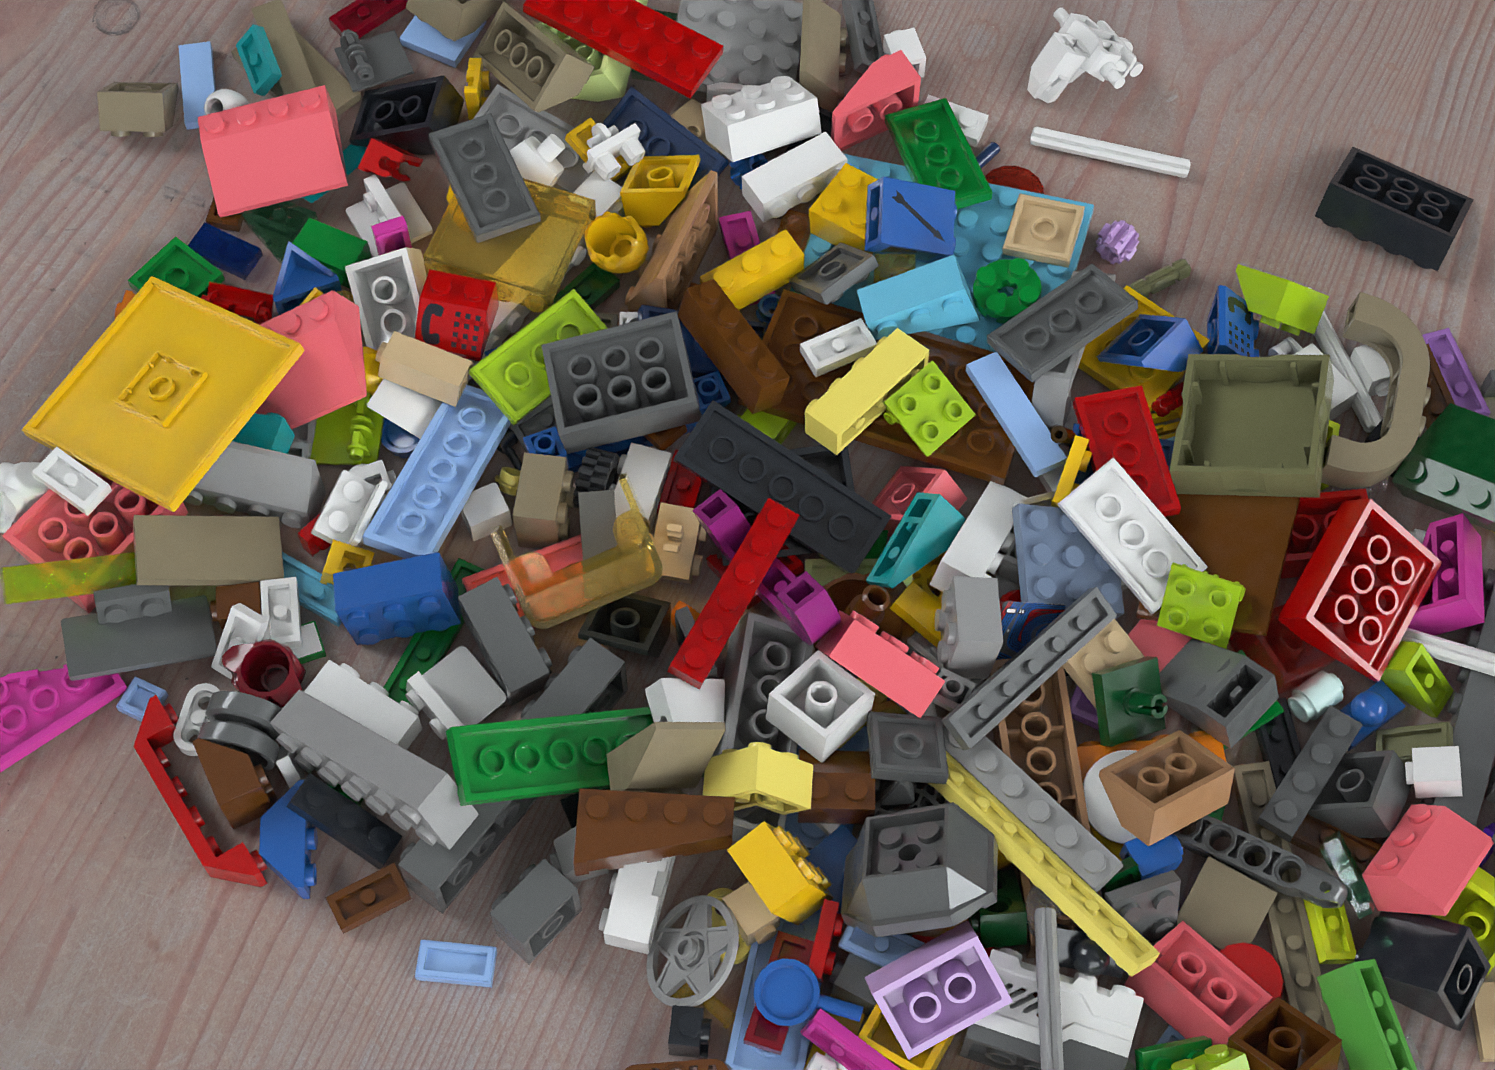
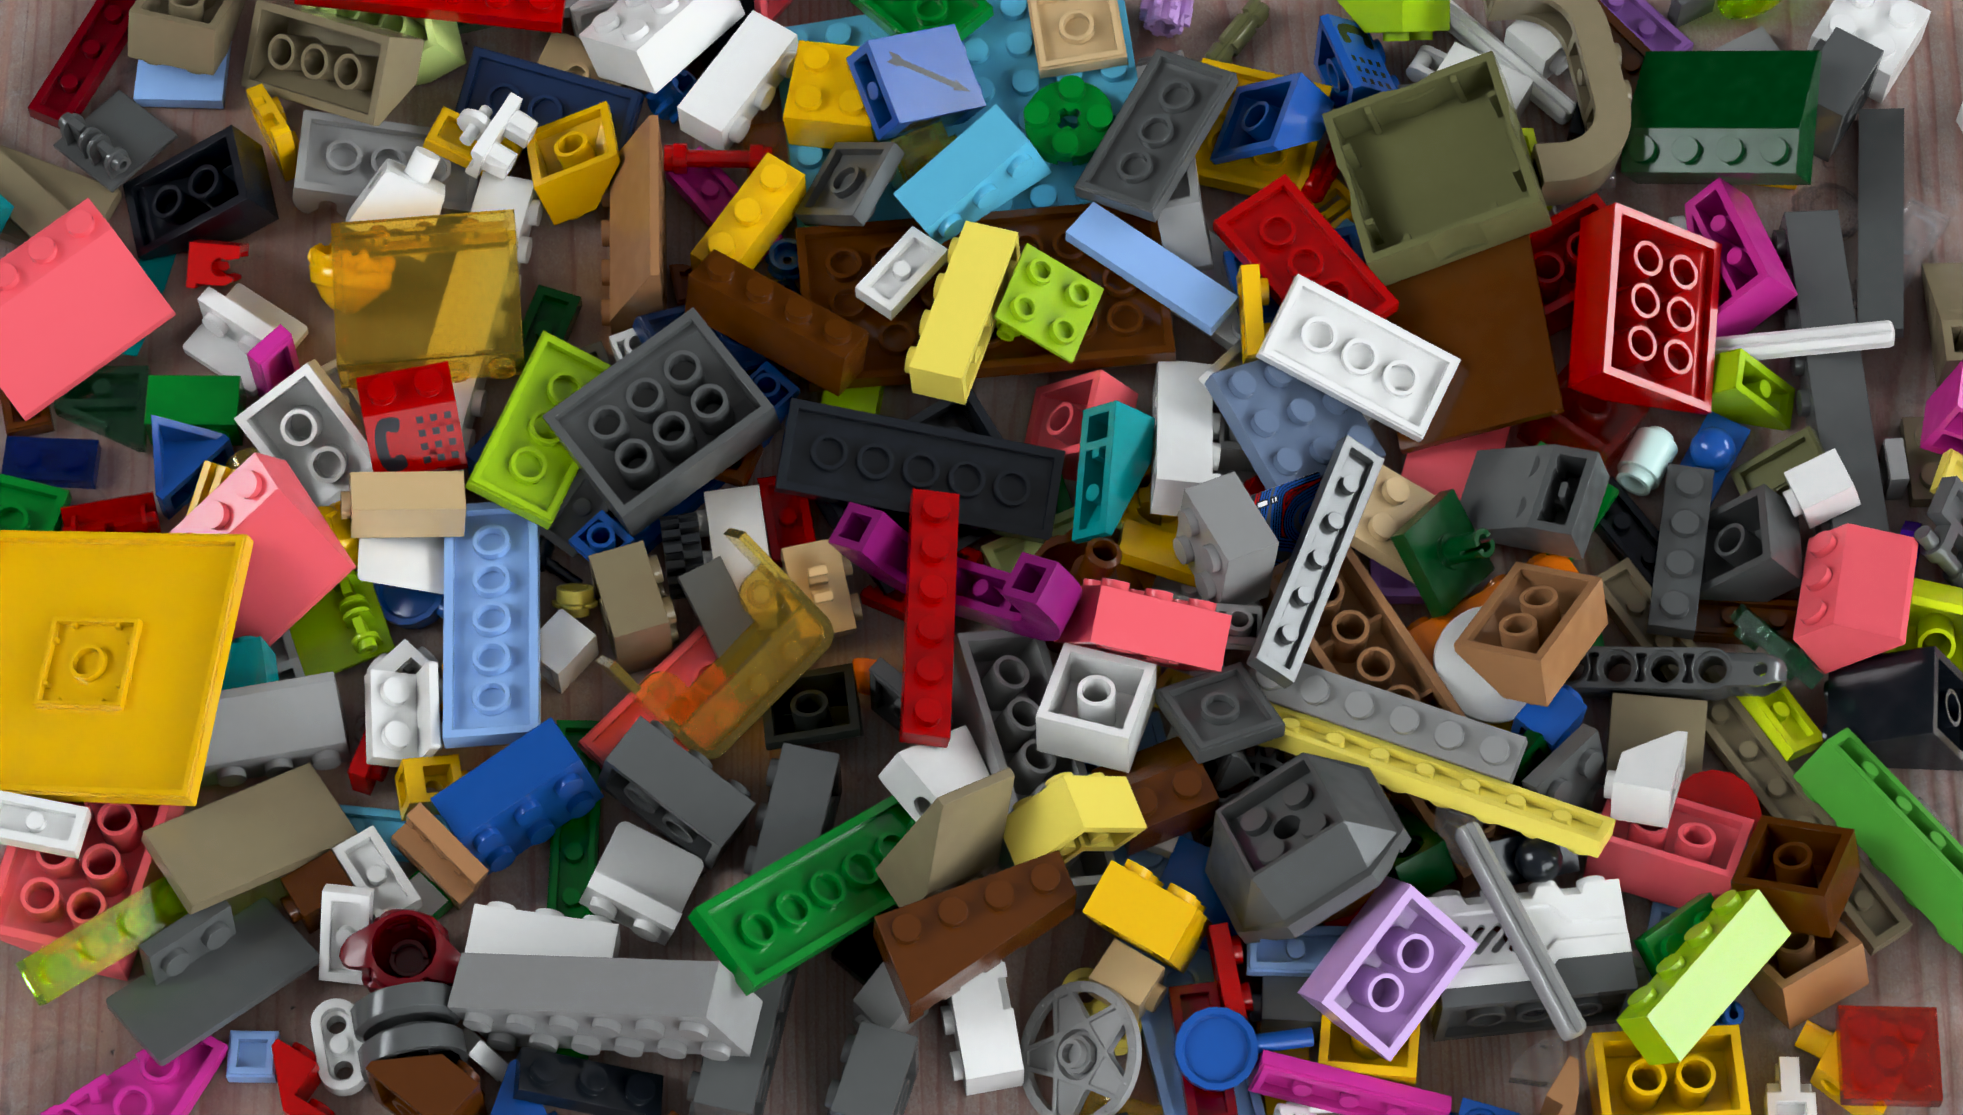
camera: 25 degrees left, 0 degrees up
(323, 617) = (439, 855): none -> medium nougat slope
(484, 178) = (362, 235): dark grey tile -> none
(616, 243) = (560, 252): yellow hair -> none
(730, 212) = (678, 158): none -> red bar
(1062, 435) = (1220, 271): dark brown arm -> none
(1200, 605) = (1474, 407): lime hinge -> none
(1203, 933) = (1647, 781): none -> white slope

